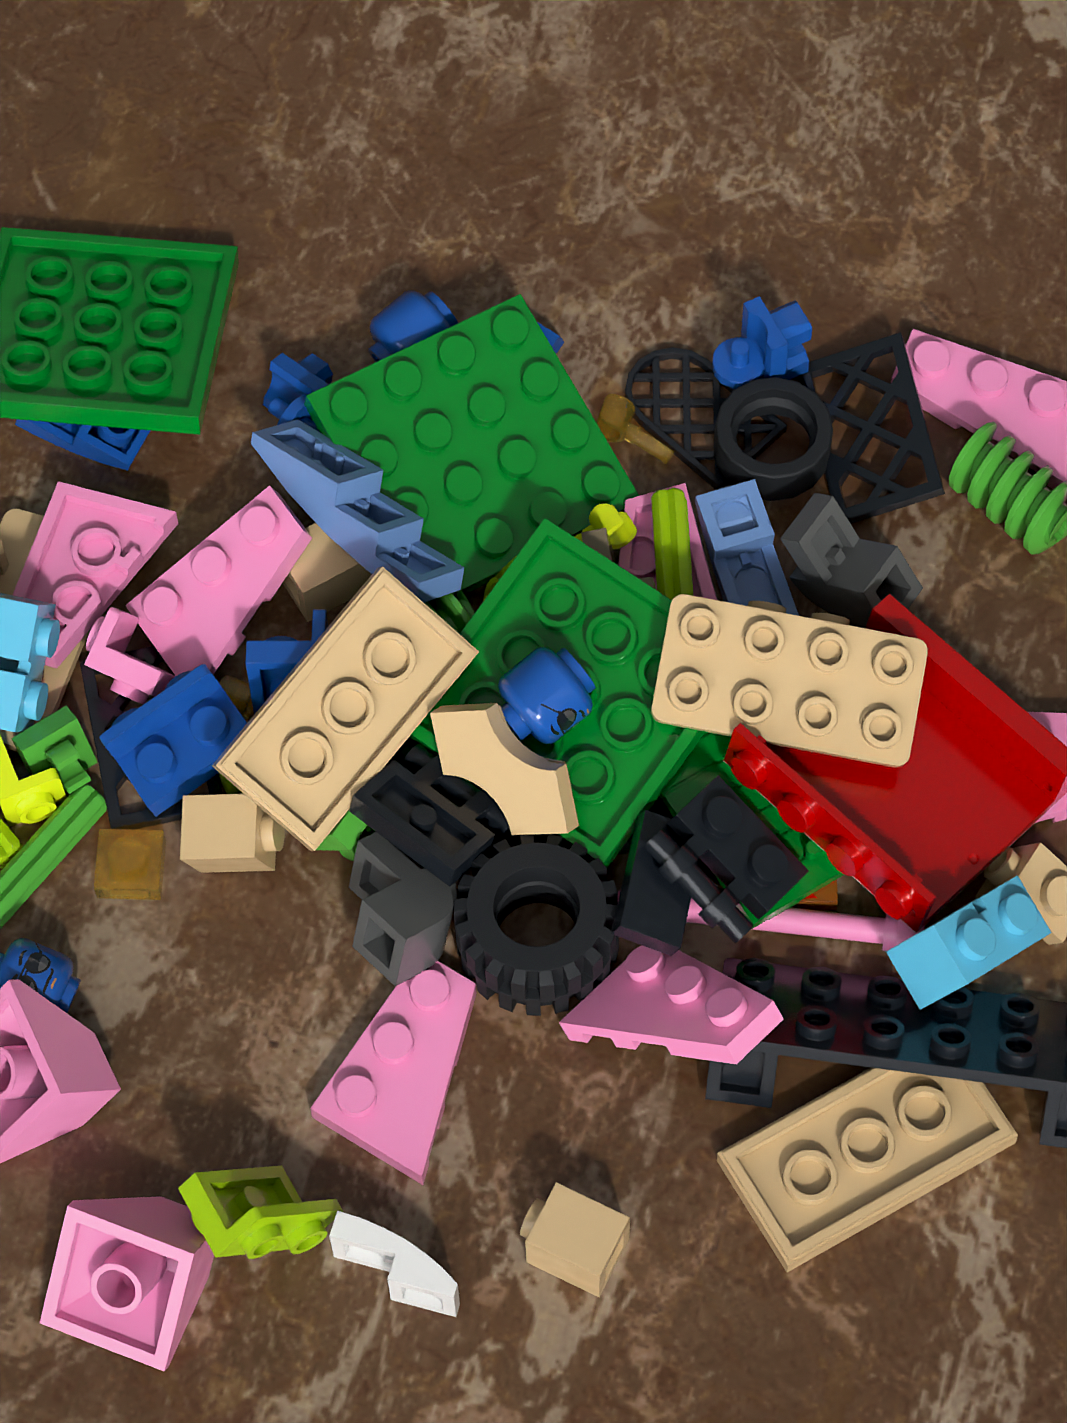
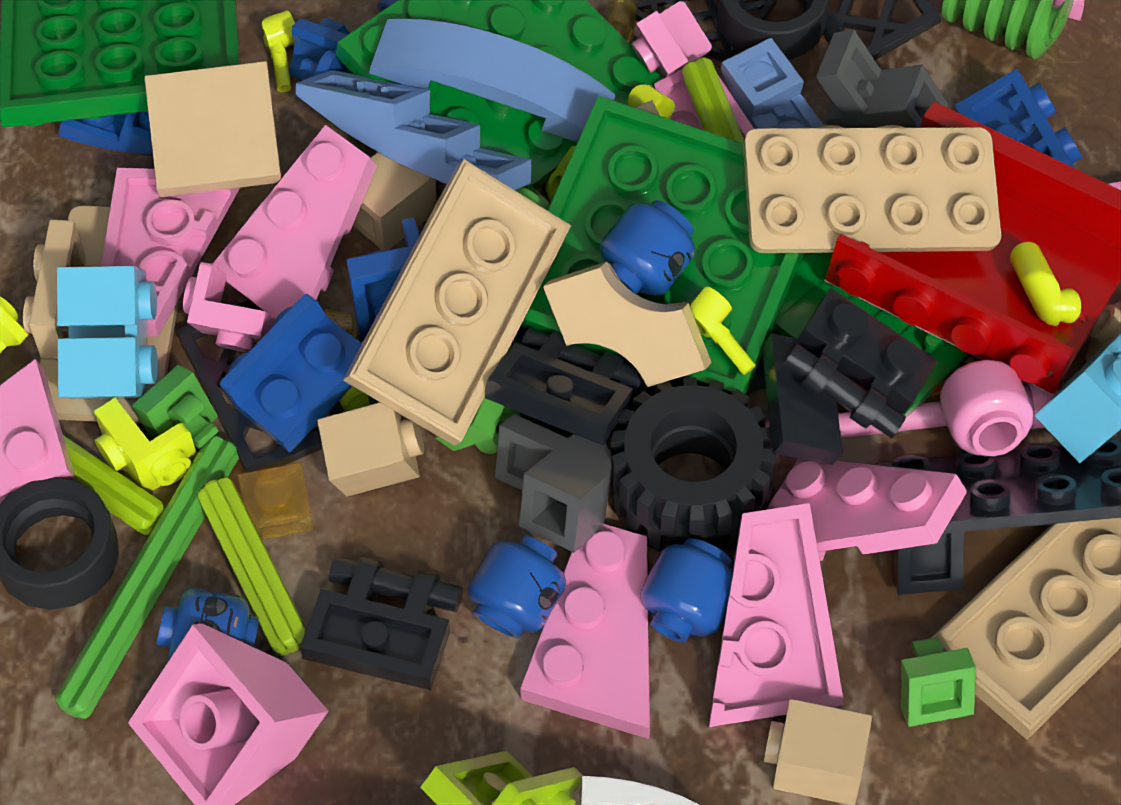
camera: 15 degrees left, 5 degrees down
(89, 926) = (253, 566): none -> lime axle
(158, 464) = (212, 129): none -> tan tile
(188, 1025) = (378, 637): none -> black plate
(258, 357) = (276, 37): none -> neon yellow hand
(334, 1006) = (516, 586): none -> blue head
(452, 461) = (489, 67): none -> medium blue slope
(498, 1049) = (688, 590): none -> blue head
(569, 1103) = (775, 622): none -> bright pink wing
(587, 775) = (709, 311): none -> neon yellow hand
(654, 456) = (669, 40): none -> bright pink bracket
(709, 1198) = (937, 683): none -> bright green tile
(842, 932) = (986, 408): none -> bright pink head
(933, 815) = (1042, 287): none -> neon yellow arm
(987, 625) = (1021, 115): none -> blue bracket

